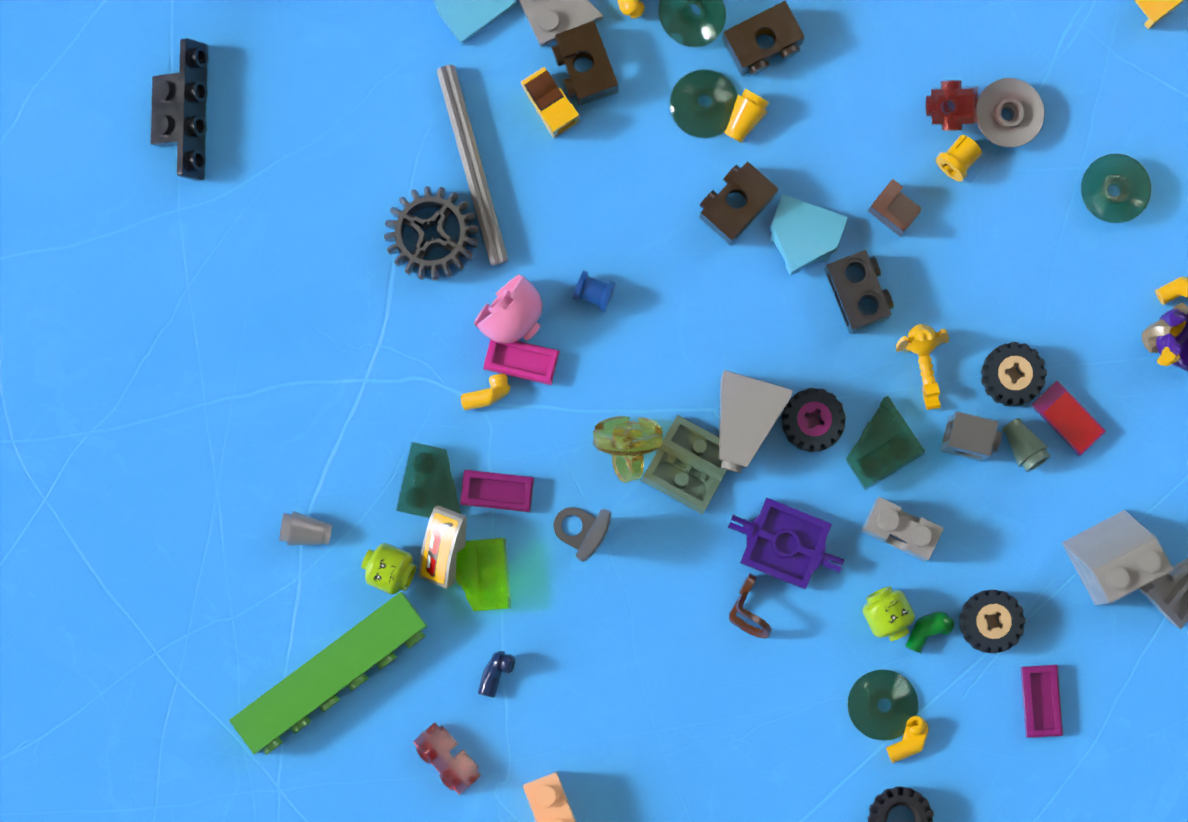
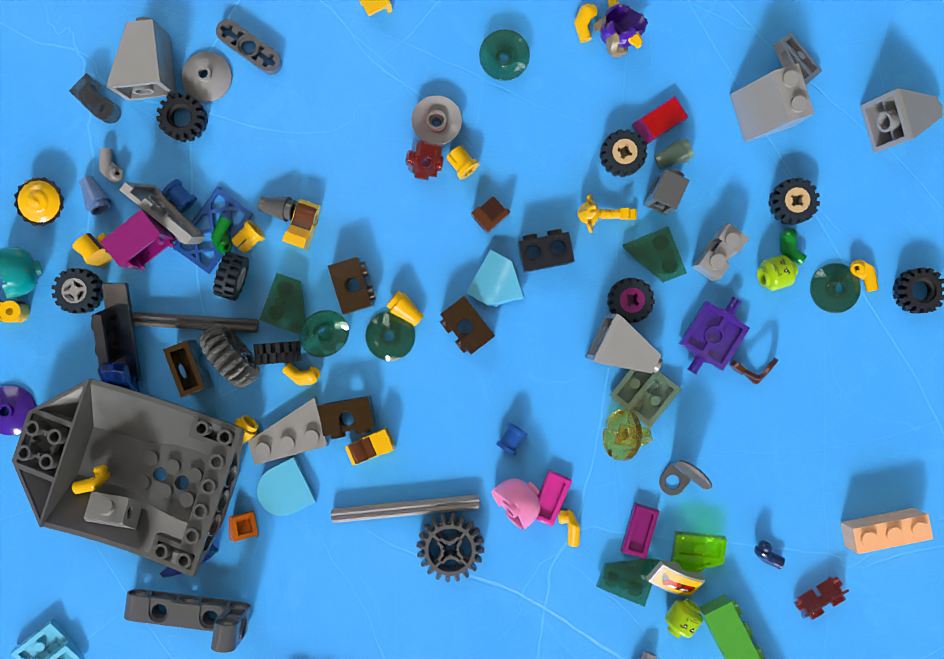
camera: 85 degrees left, 5 degrees up
(1041, 701) = (853, 177): magenta tile -> none
(1137, 745) = (899, 117): none -> light grey slope

